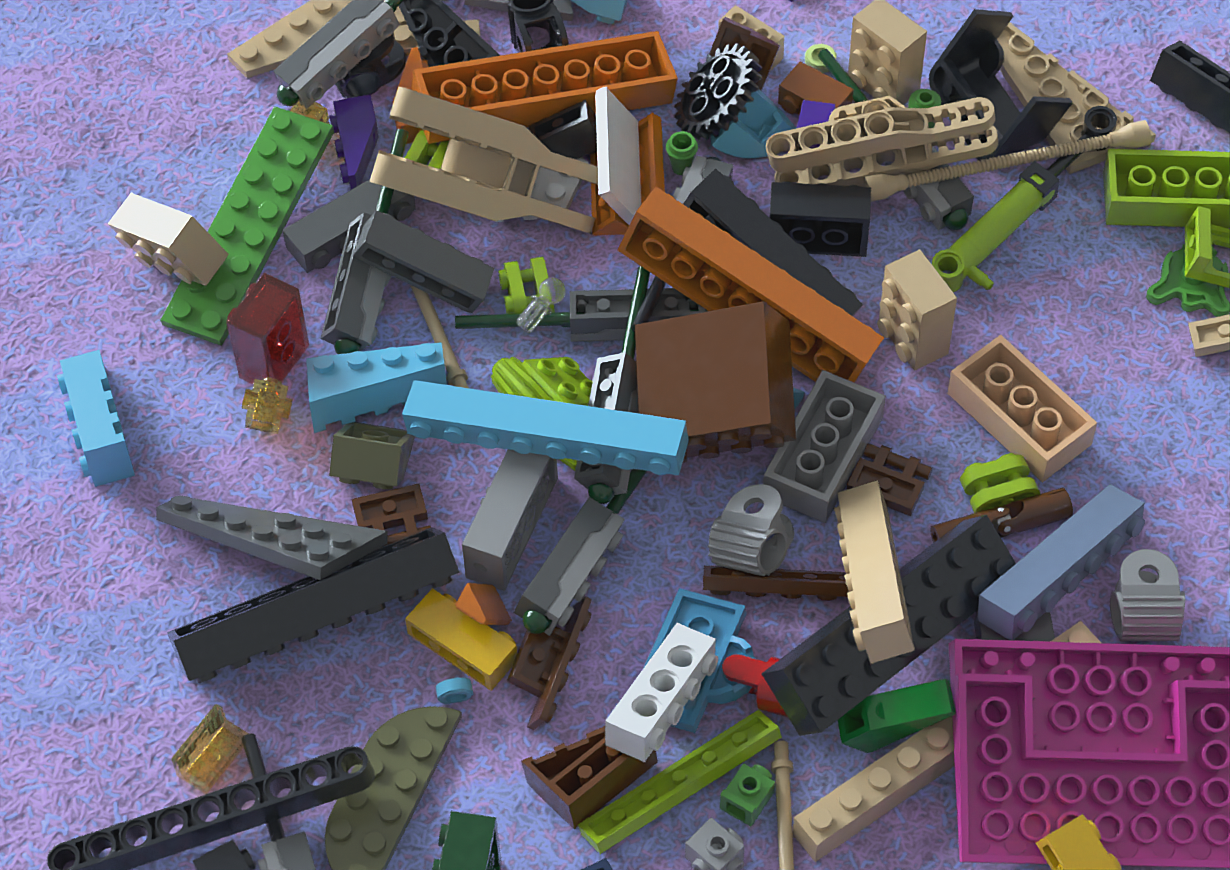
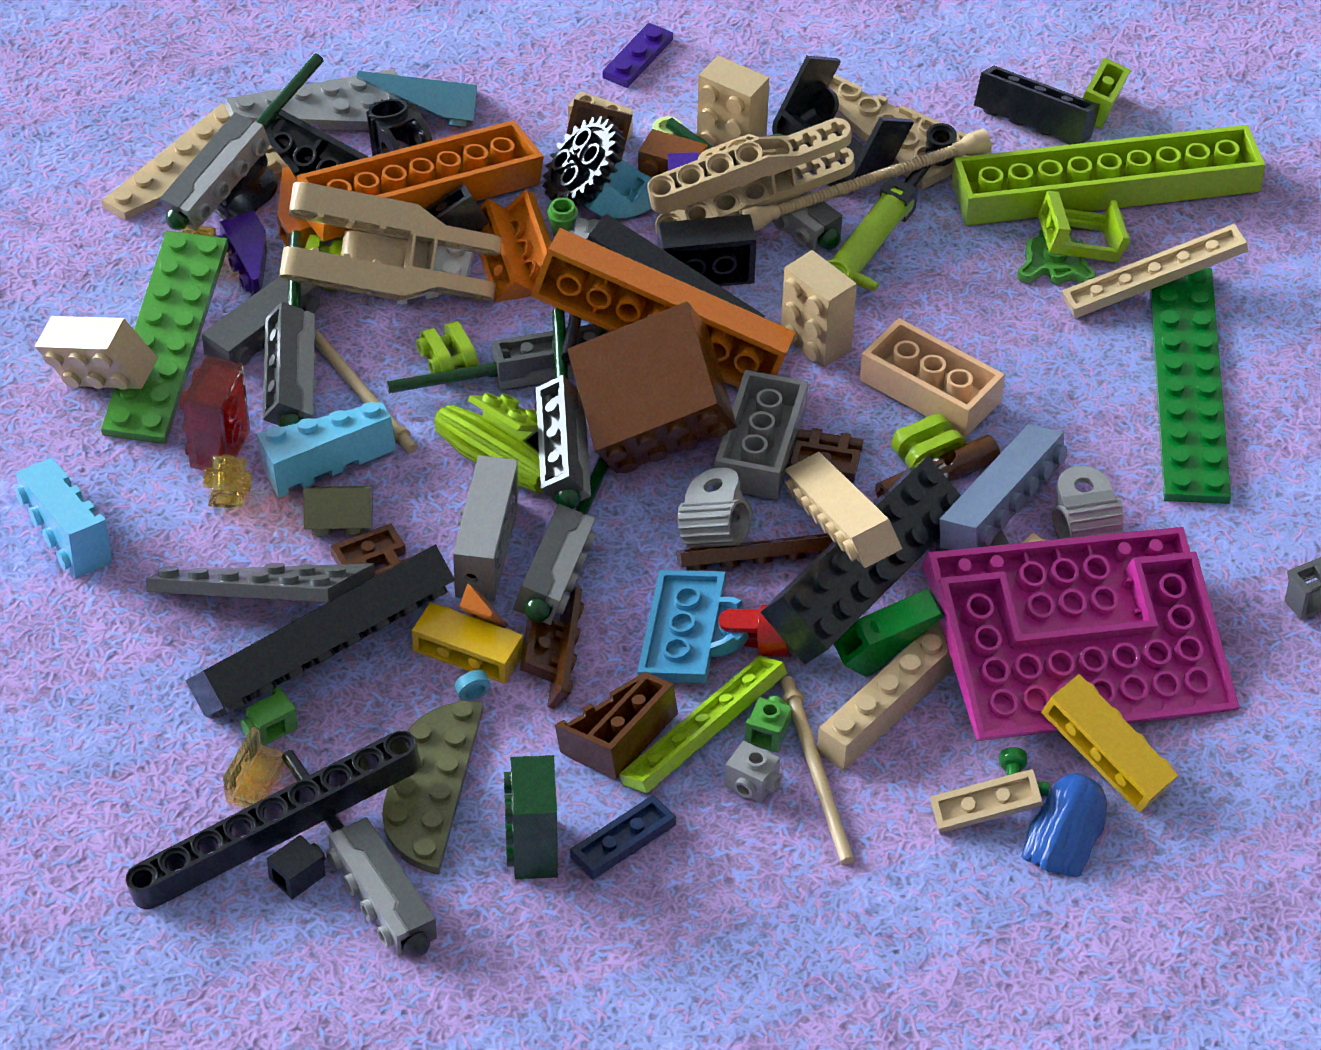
camera: 15 degrees left, 10 degrees down
(241, 691) = (272, 715): none -> bright green brick
(423, 262) = (346, 337): dark grey brick -> none
(546, 427) = (506, 444): medium azure brick -> none
(551, 292) = (474, 344): clear axle -> none
(617, 155) = (506, 227): white tile -> none
(661, 692) = (671, 644): white brick -> none

